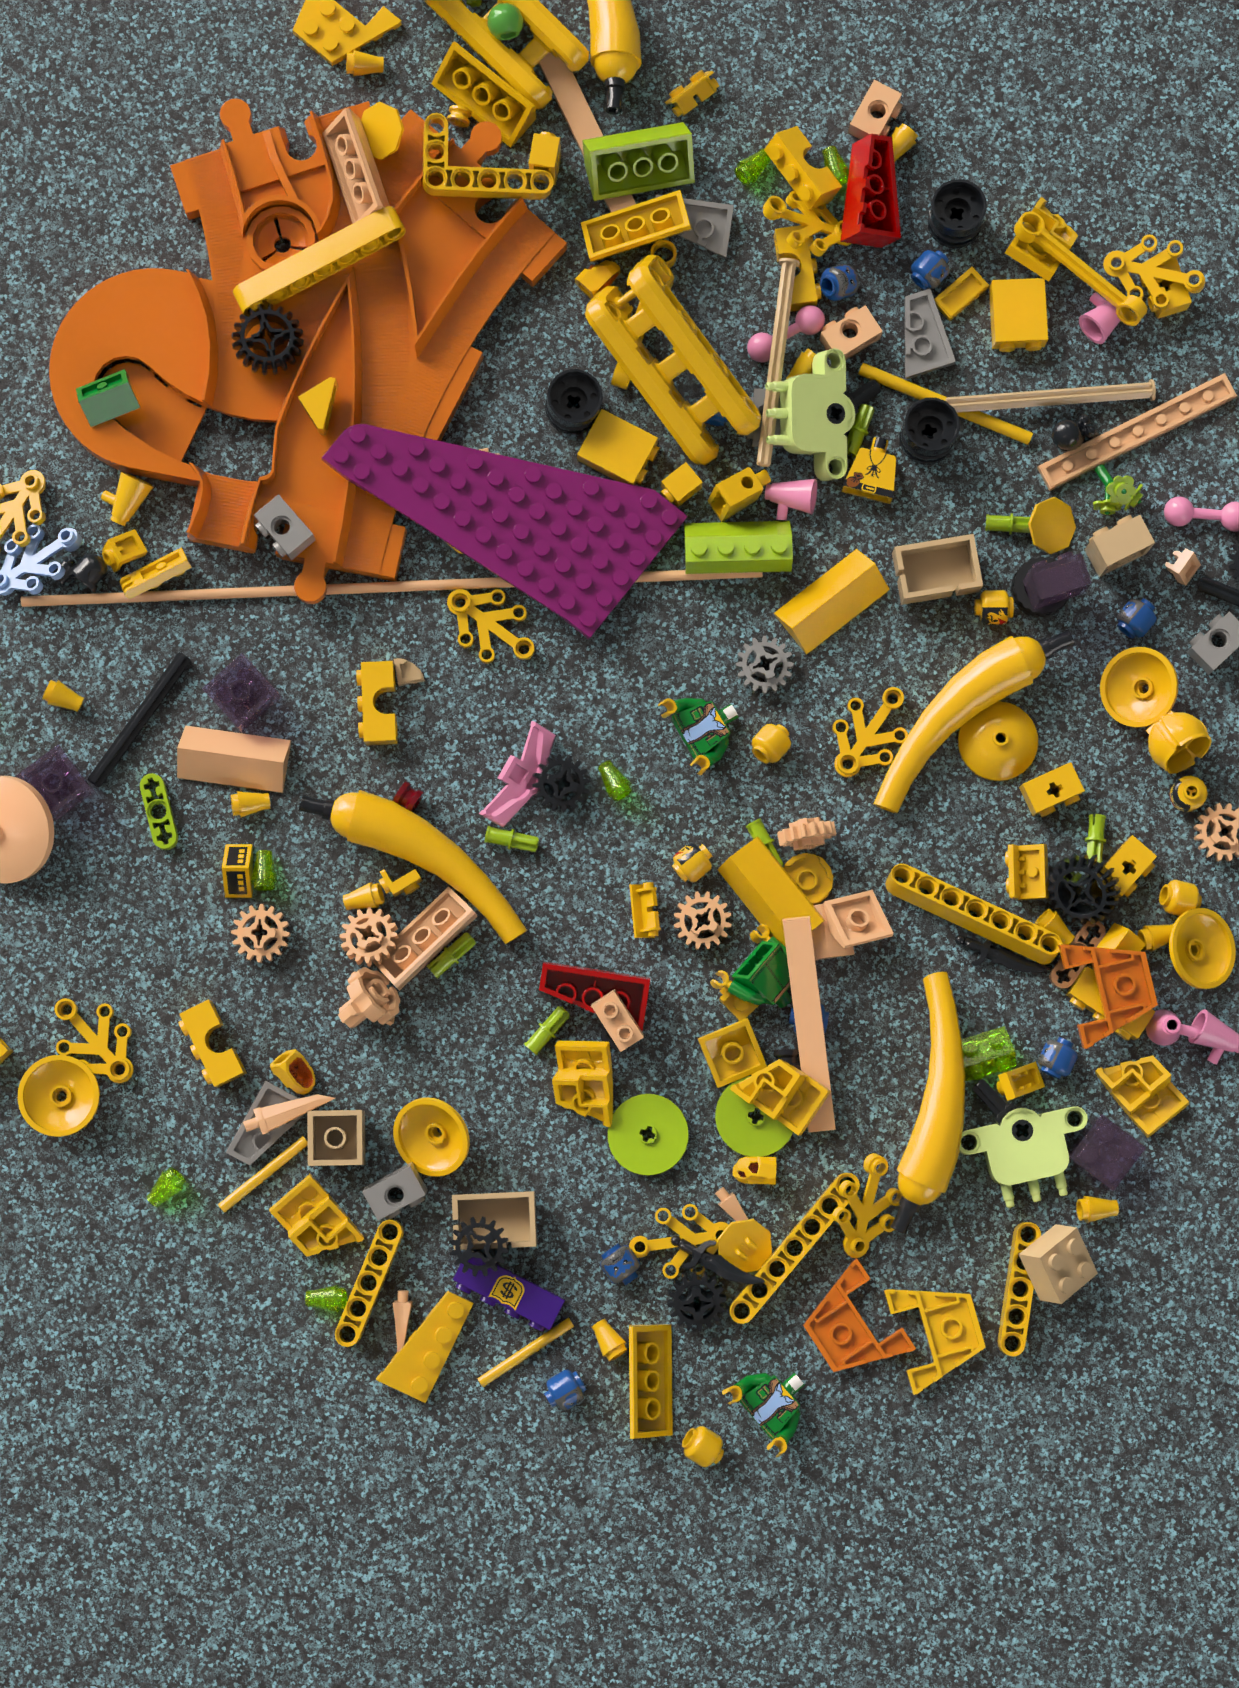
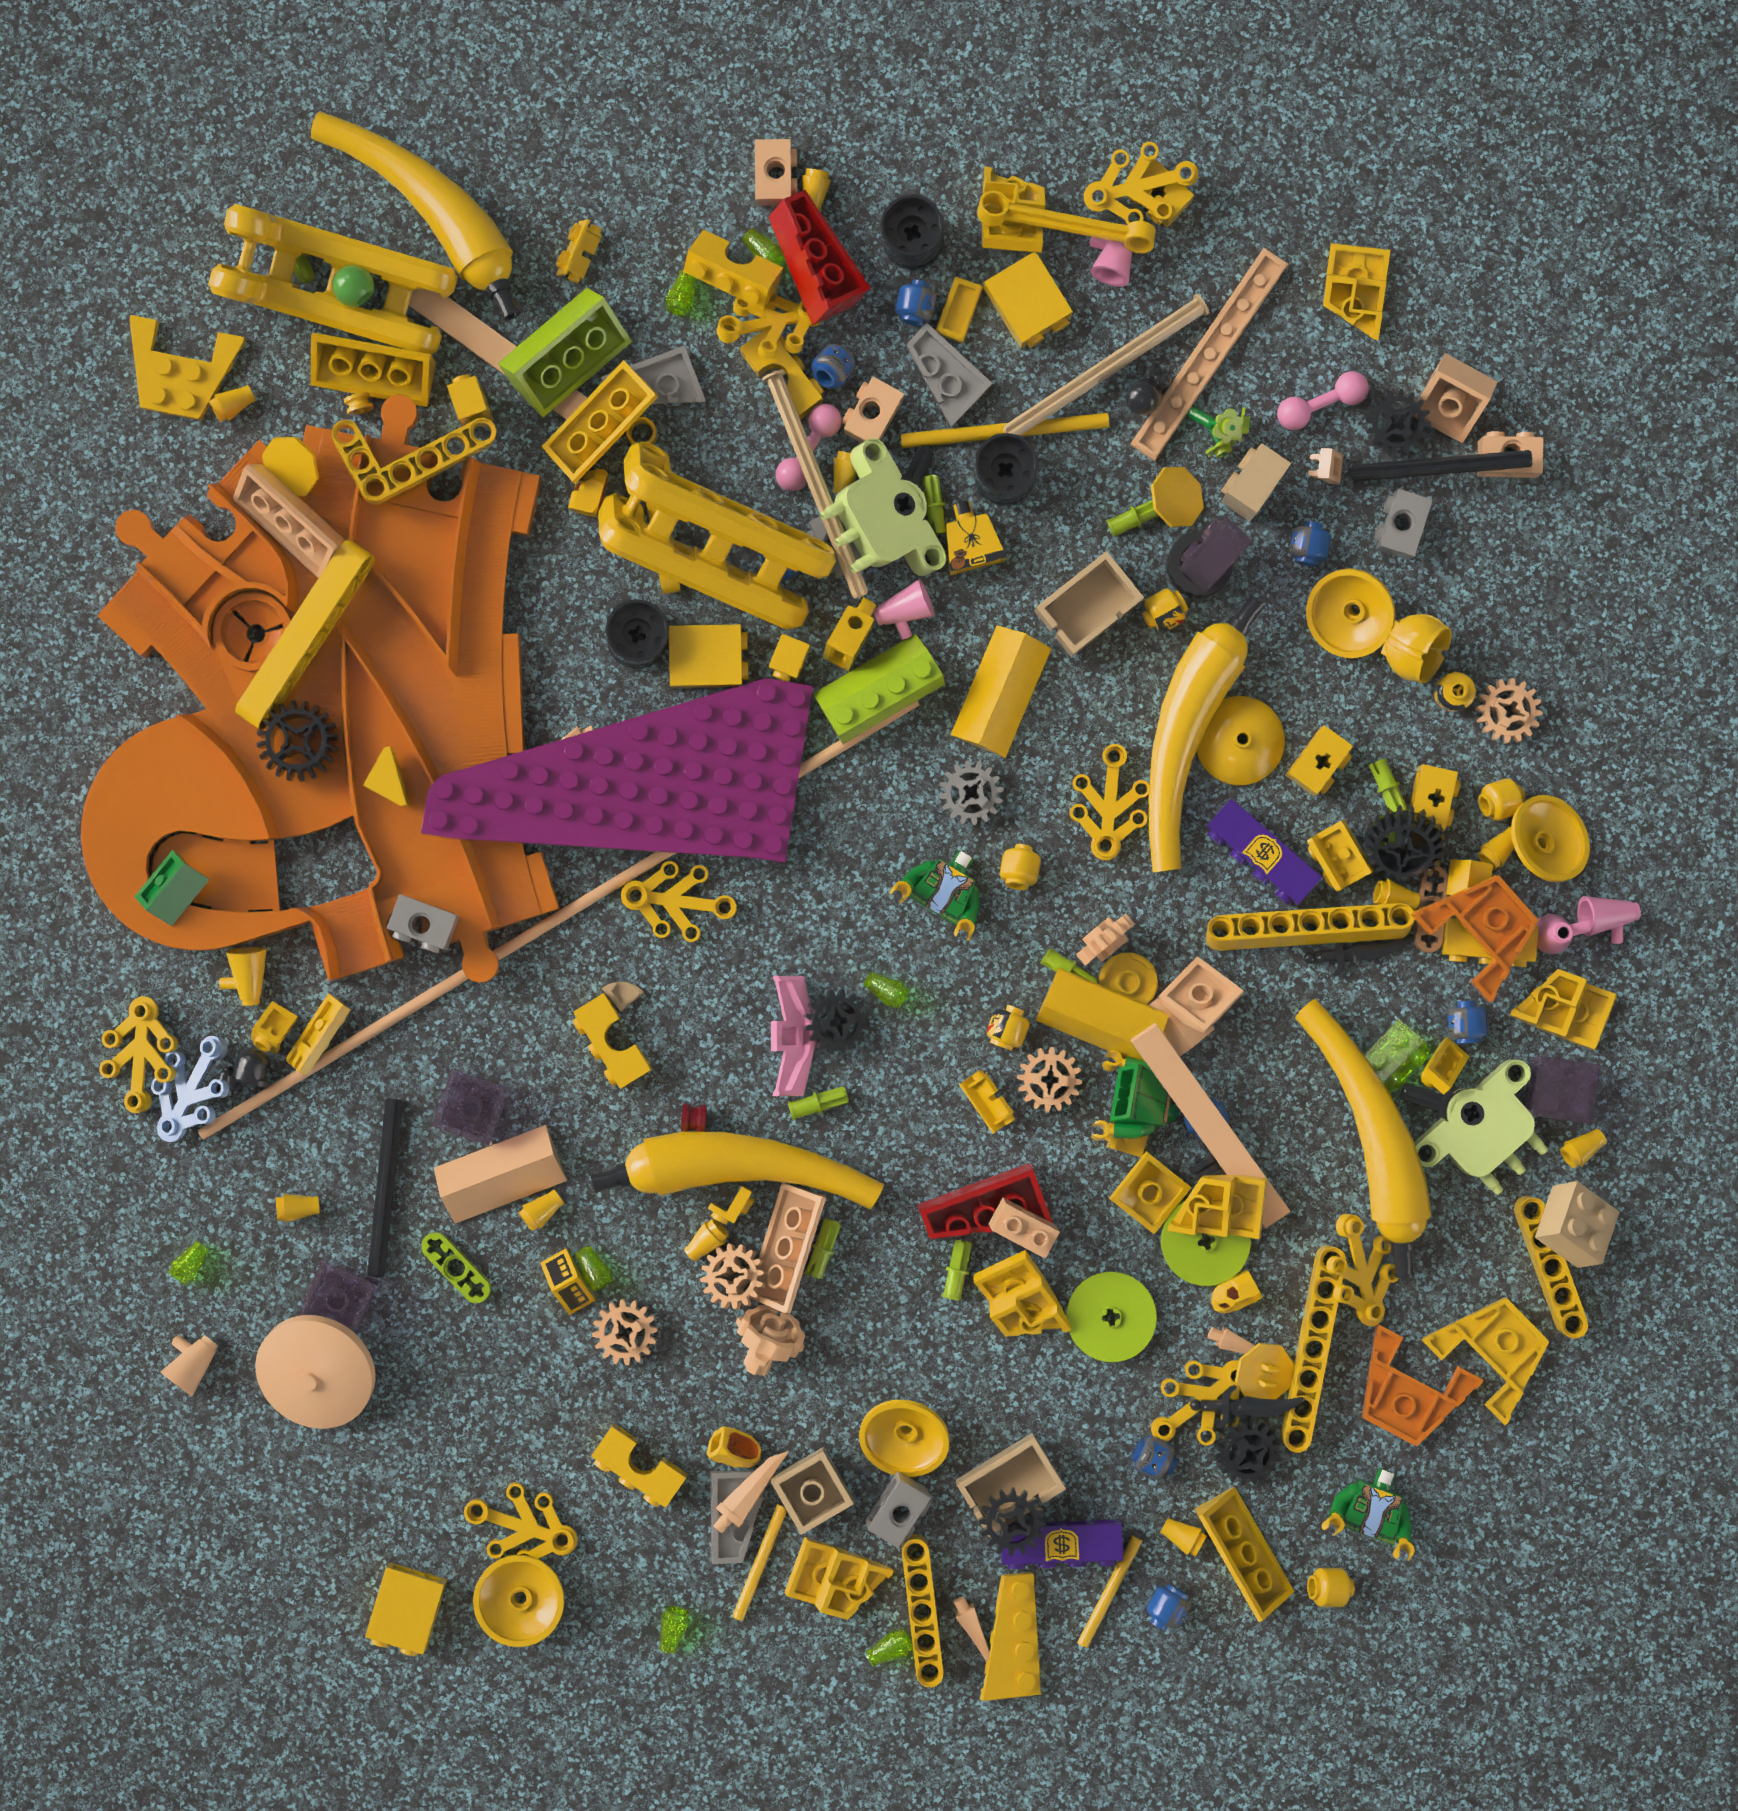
camera: 30 degrees left, 5 degrees up
(968, 836) = (1262, 852): none -> dark purple brick

